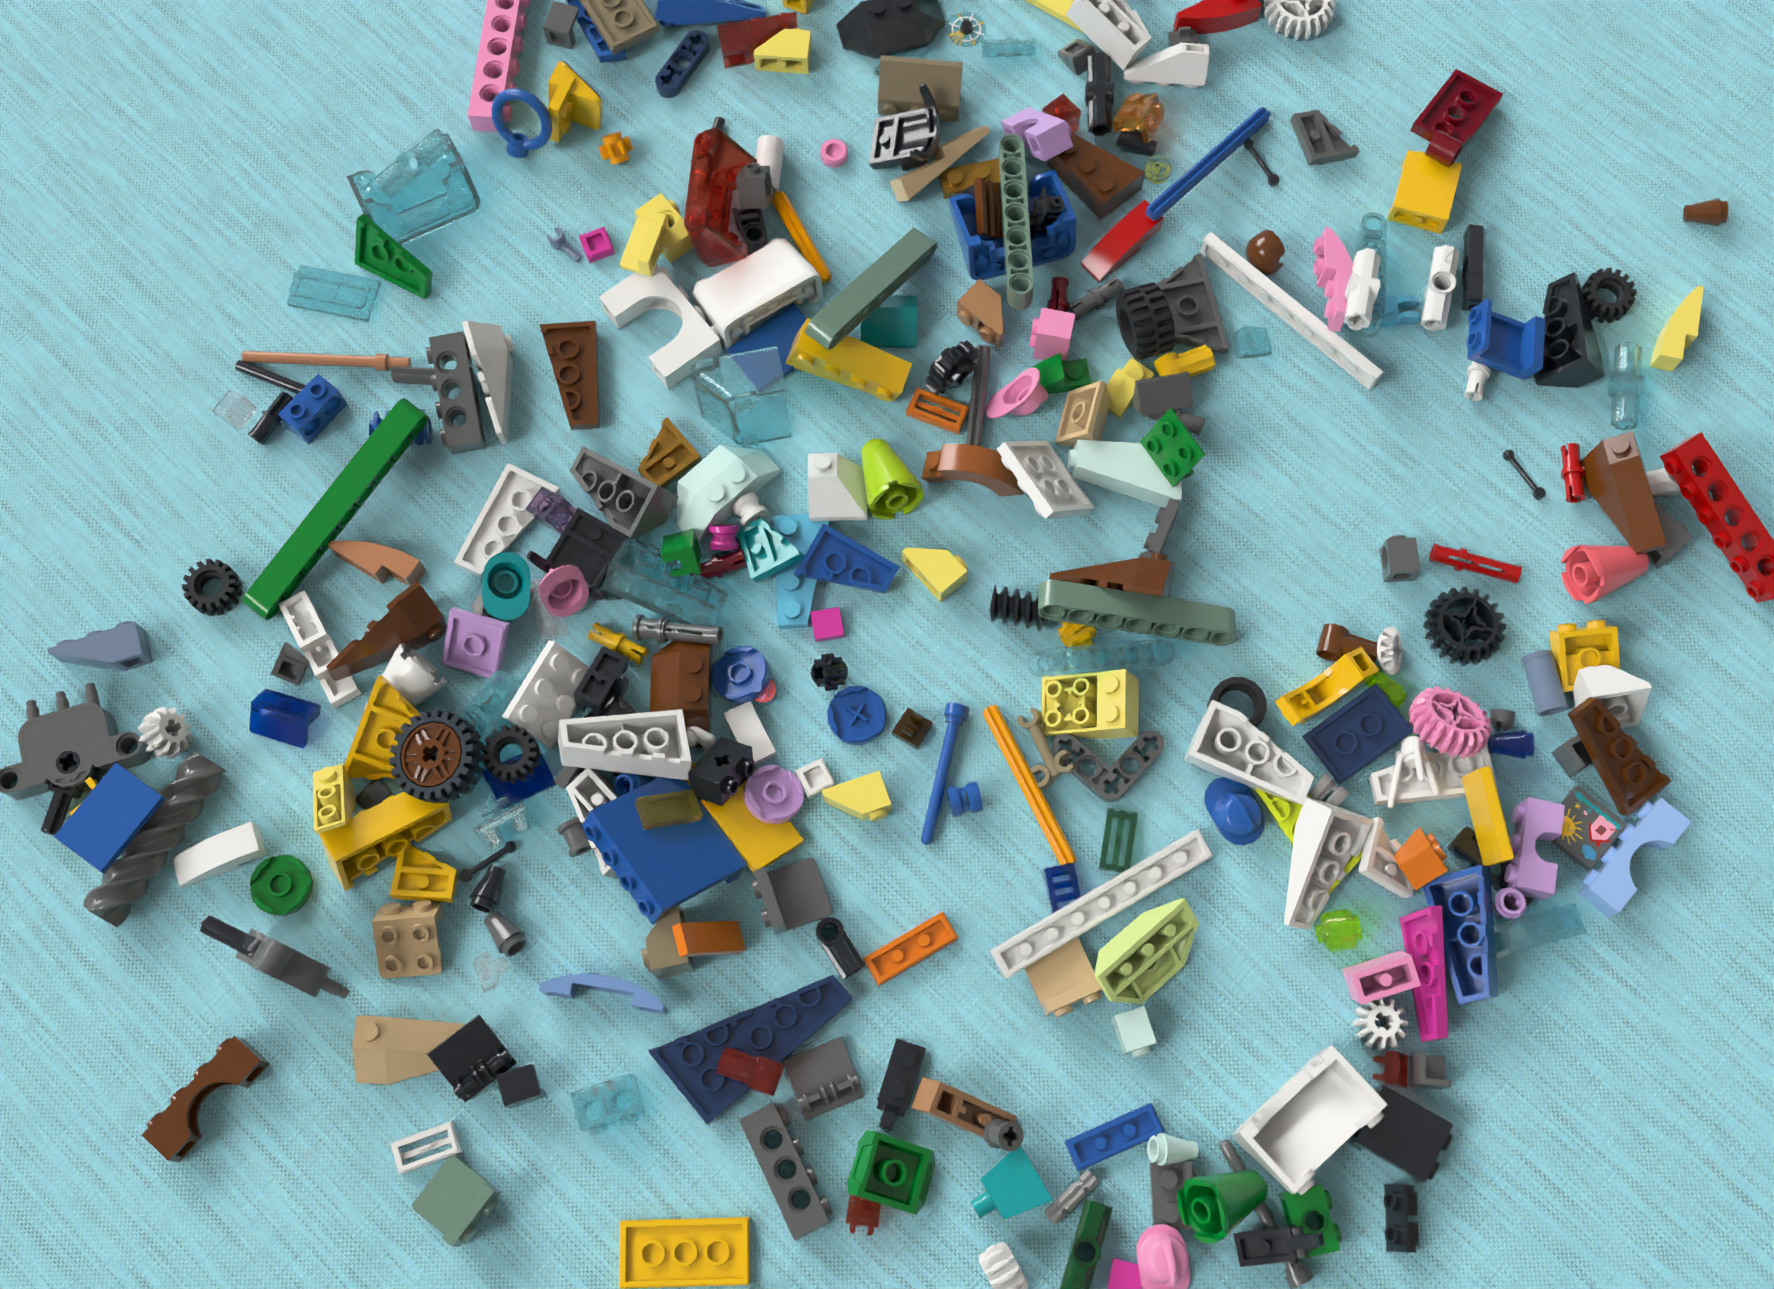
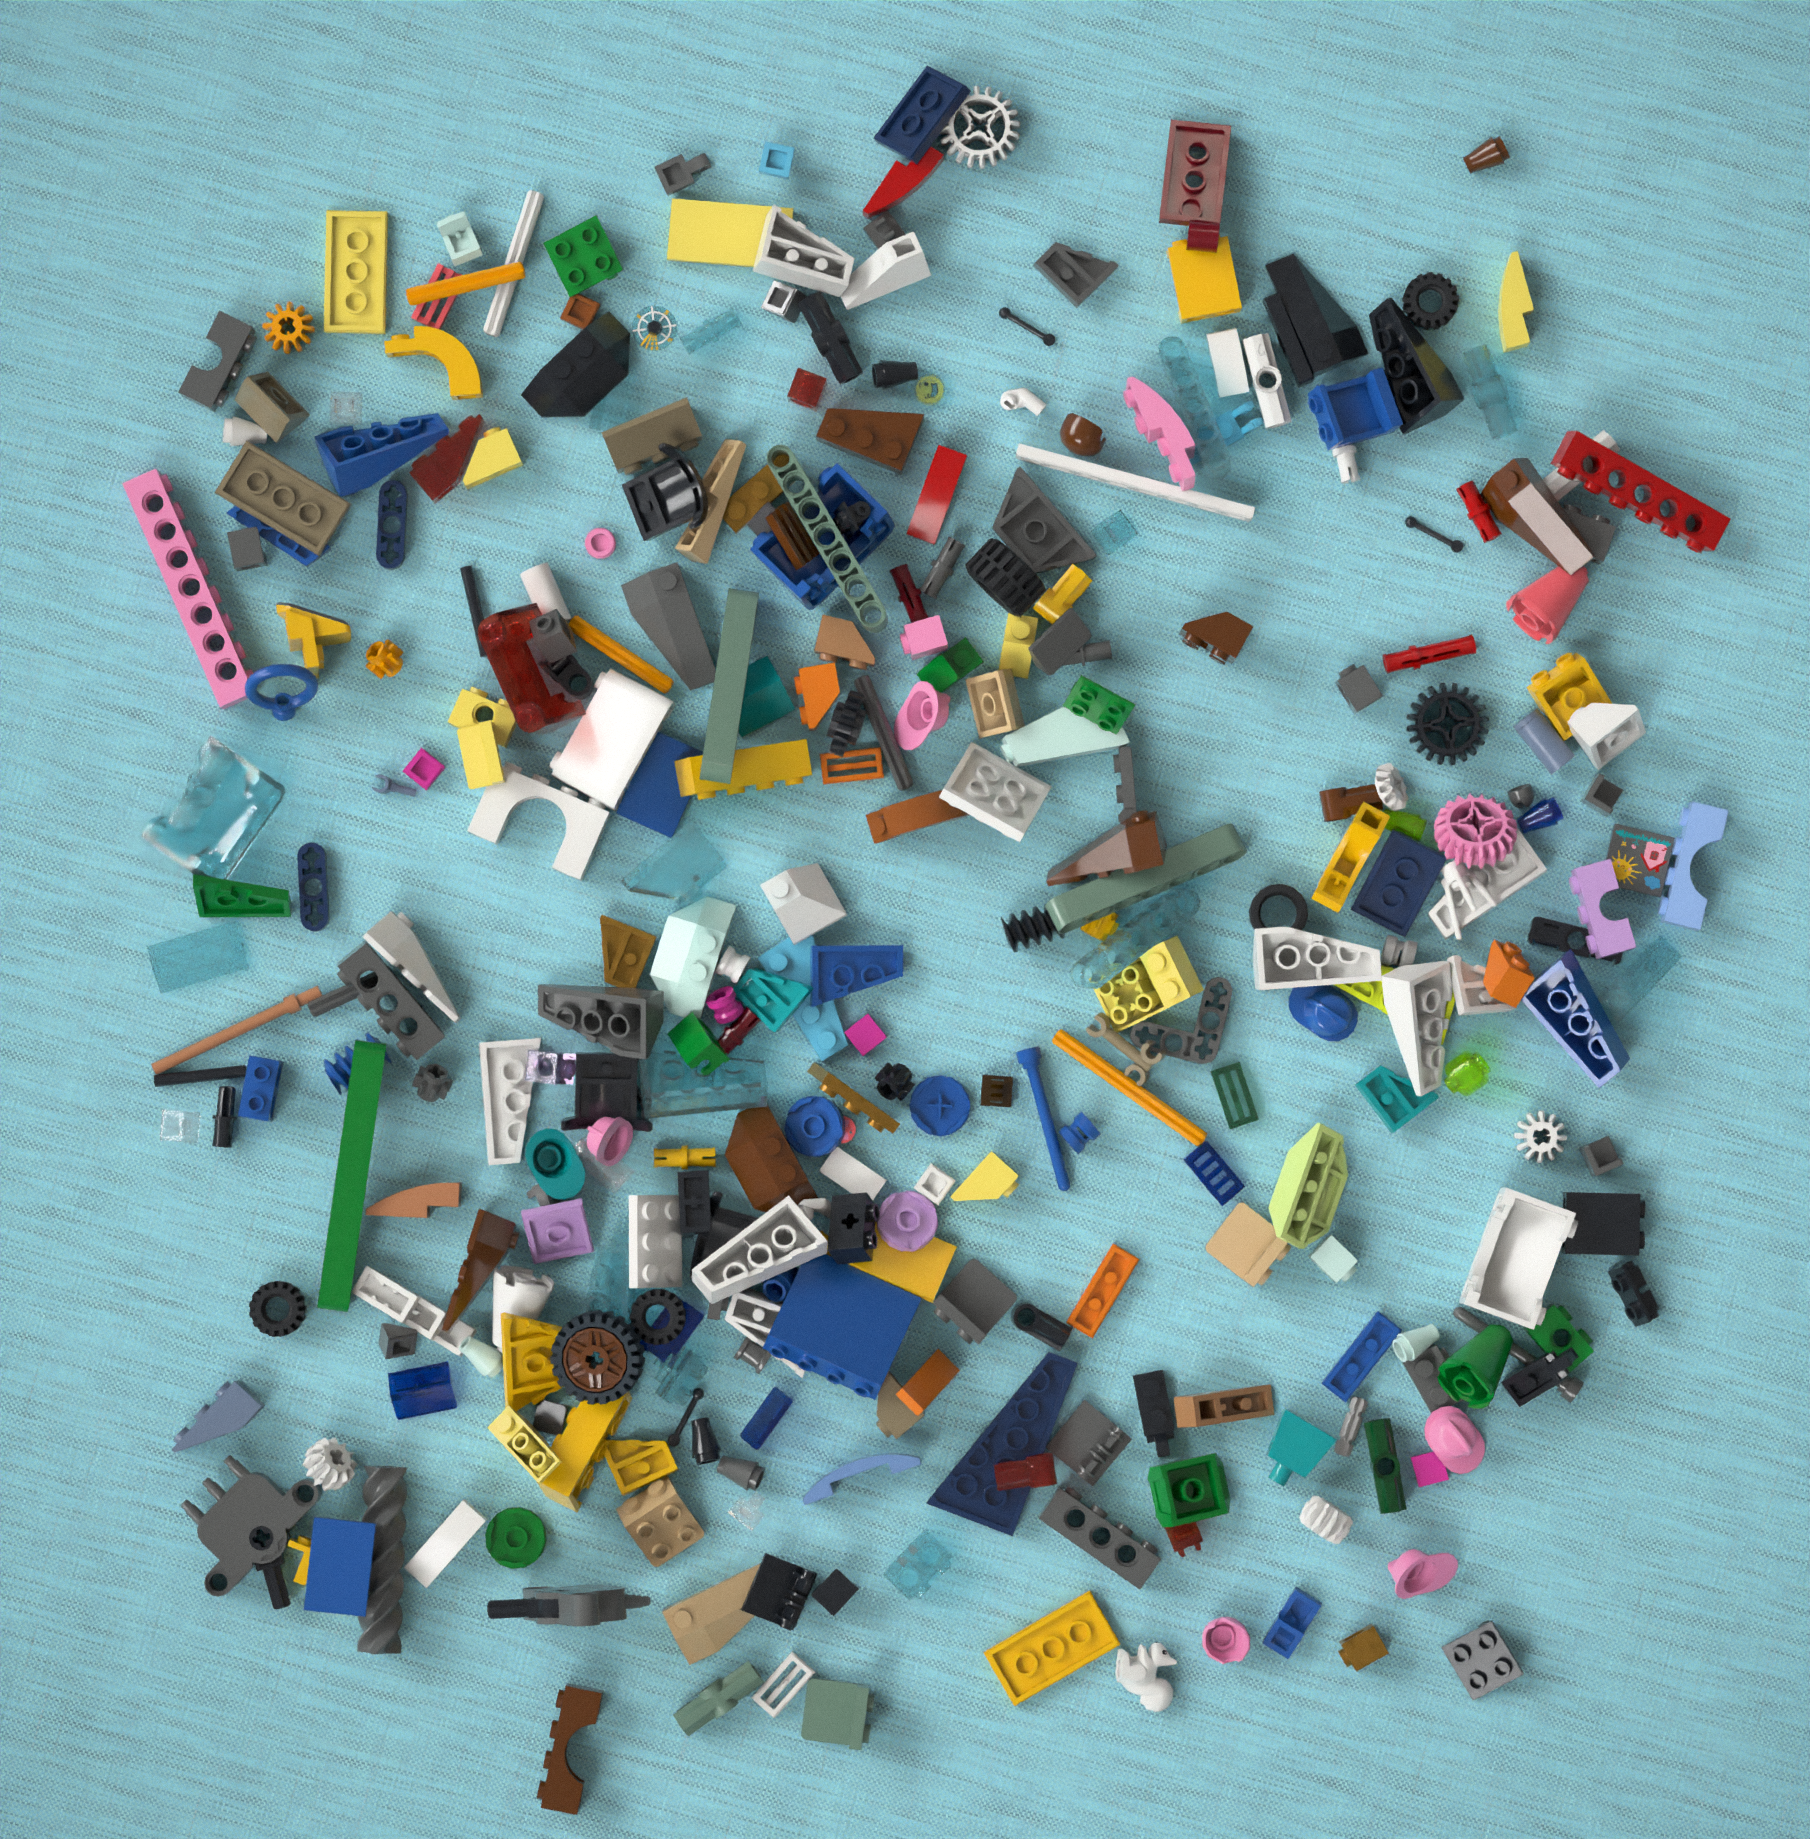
camera: 30 degrees left, 15 degrees up
(348, 712) = (482, 1356): none -> light aqua cone
(360, 1126) = (718, 1698): none -> sand green piece
(450, 475) = (432, 1082): none -> dark grey gear
(455, 298) = (319, 864): none -> dark blue beam
(555, 900) = (766, 1418): none -> clear blue slope
(575, 366) = (482, 909): reddish brown wing -> none
(663, 631) = (721, 1124): dark grey pin -> none
(668, 809) = (828, 1291): clear yellow tile -> none
(786, 668) = (854, 1101): none -> pearl gold wing
(855, 226) = (668, 618): none -> dark grey wedge
(888, 481) = (845, 866): lime cone -> none
(936, 569) = (939, 929): light yellow slope -> none
(942, 332) = (819, 690): none -> orange slope
(1012, 1137) = (1267, 1409): dark grey bush -> none
(1040, 131) = (798, 427): lavender arch -> none
(1100, 903) = (1249, 1161): white tile -> none
(1141, 113) = (884, 347): clear orange bracket -> none
(1207, 164) = (979, 366): blue axle -> none
(1230, 209) = (1021, 398): none -> white arm
(1261, 916) = (1393, 1097): none -> teal wing
(1300, 452) = (1219, 634): none -> reddish brown slope
(1362, 289) = (1197, 445): white piece -> none
(1381, 977) = (1522, 1097): bright pink brick -> none
(1395, 1069) = (1571, 1171): clear red tile -> none
(1413, 261) = (1227, 362): none -> white slope
(1425, 942) = (1553, 1062): dark pink wing -> none
(1487, 817) = (1547, 909): yellow tile -> none
(1504, 267) = (1318, 321): none -> black wedge
(1509, 903) = (1609, 968): lavender cone -> none
(1620, 763) = (1642, 786): reddish brown wing -> none

